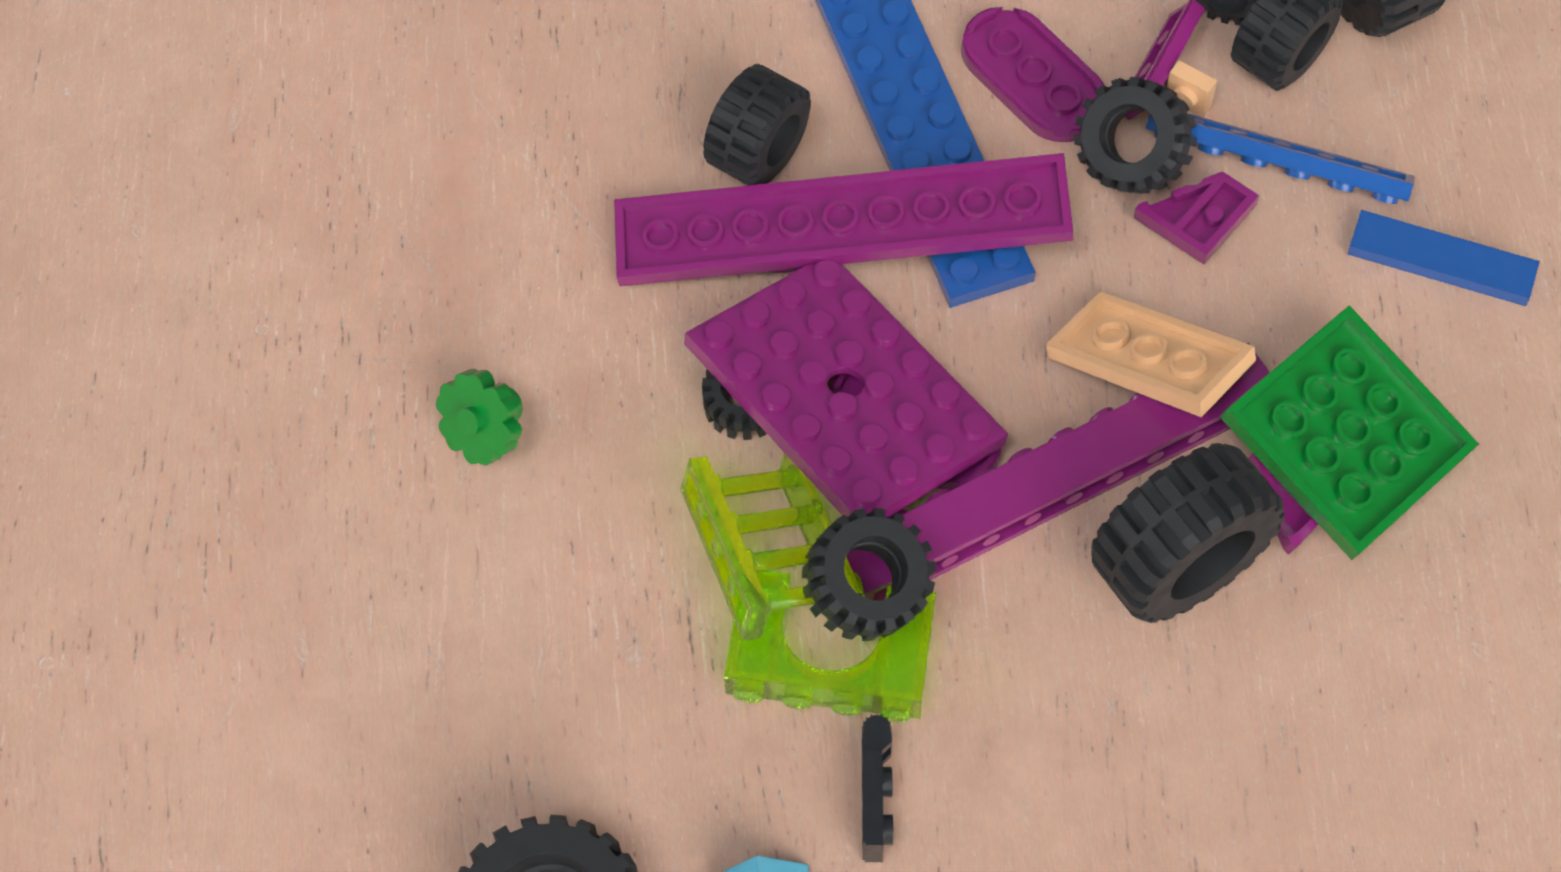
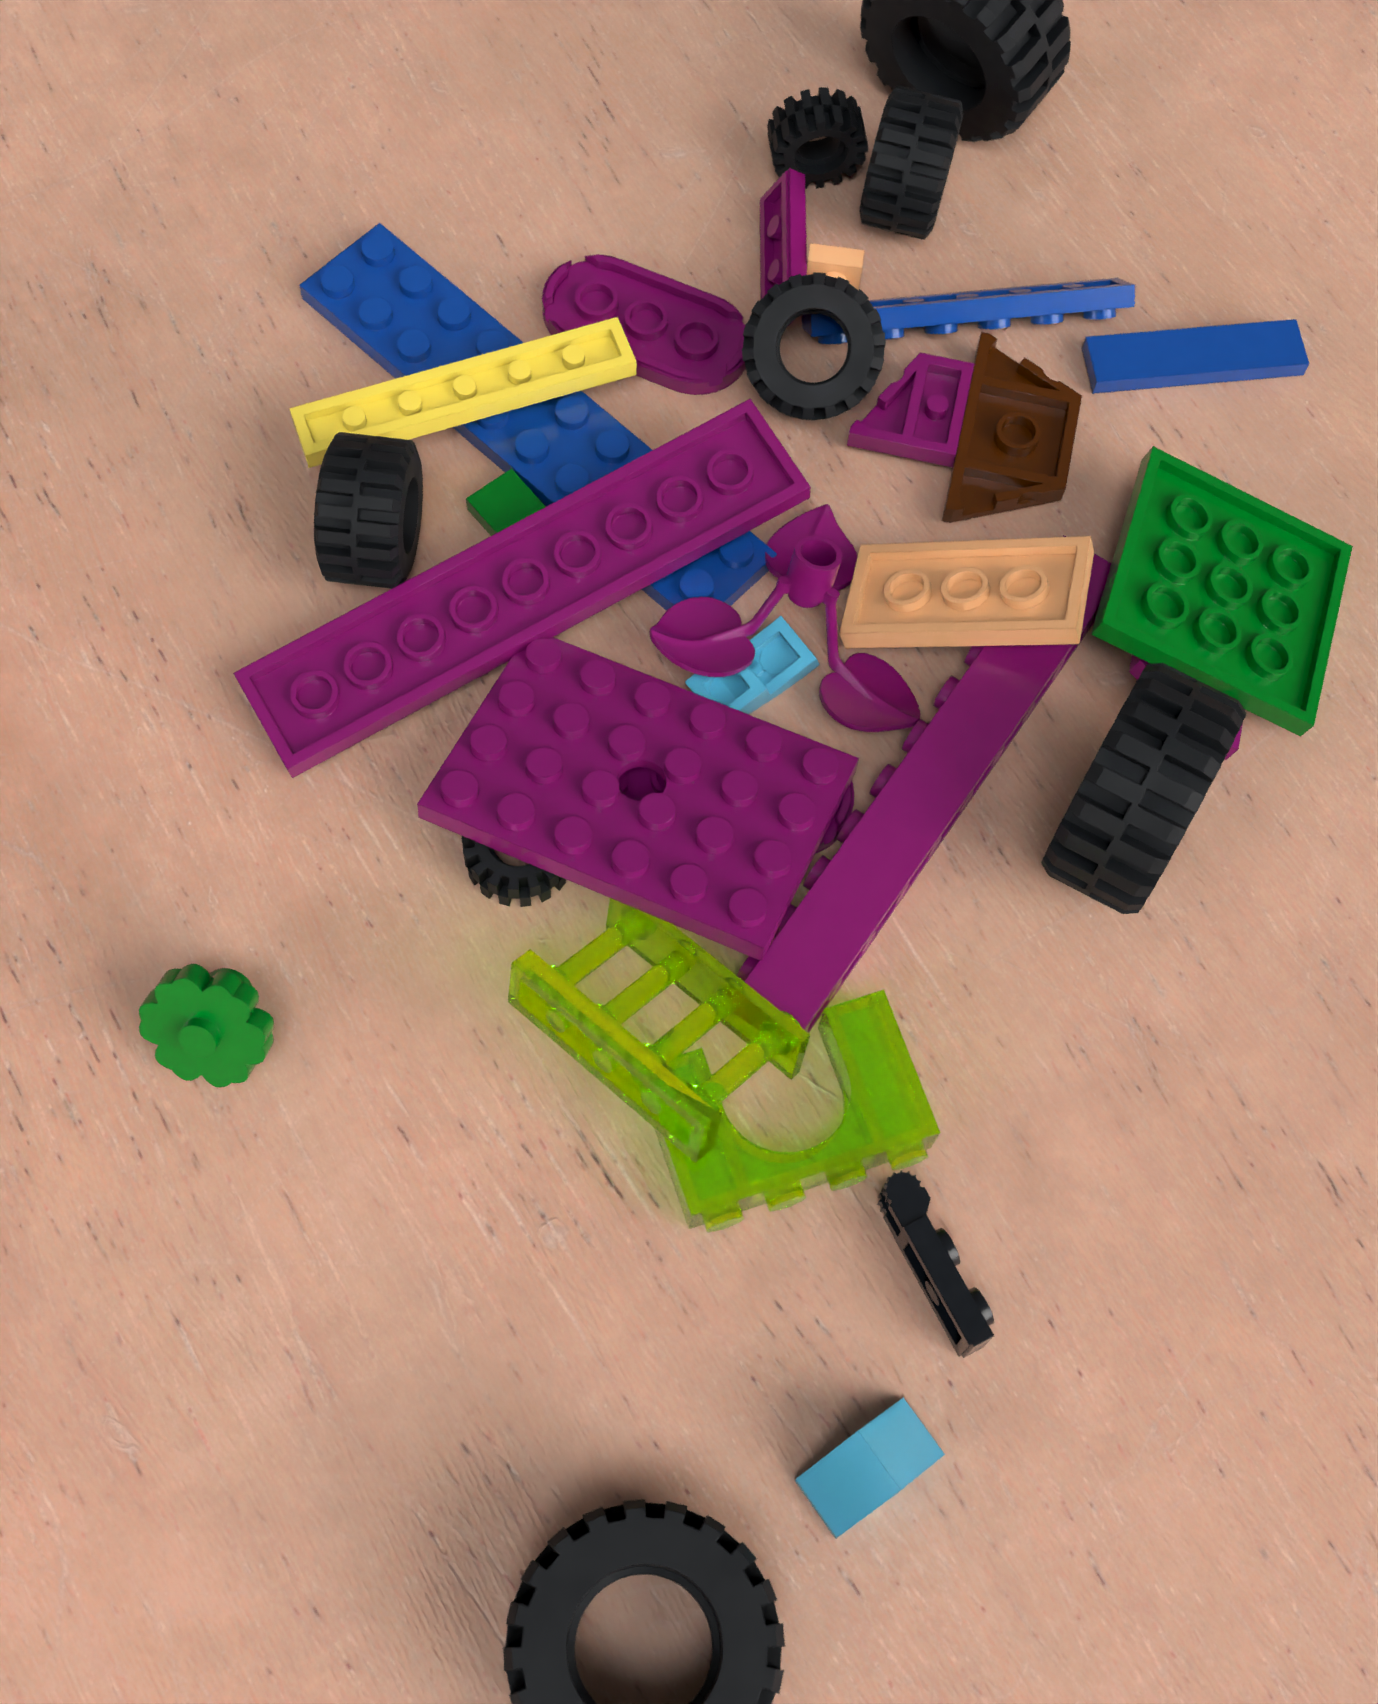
camera: 35 degrees left, 5 degrees up
(860, 157) = (503, 503): none -> green tile
(876, 70) = (469, 388): none -> light yellow plate
(899, 551) = (858, 996): black tyre -> none
(977, 348) = (778, 664): none -> medium azure slope
(1059, 282) = (810, 567): none -> magenta plant
(1258, 260) = (1011, 437): none -> reddish brown wing

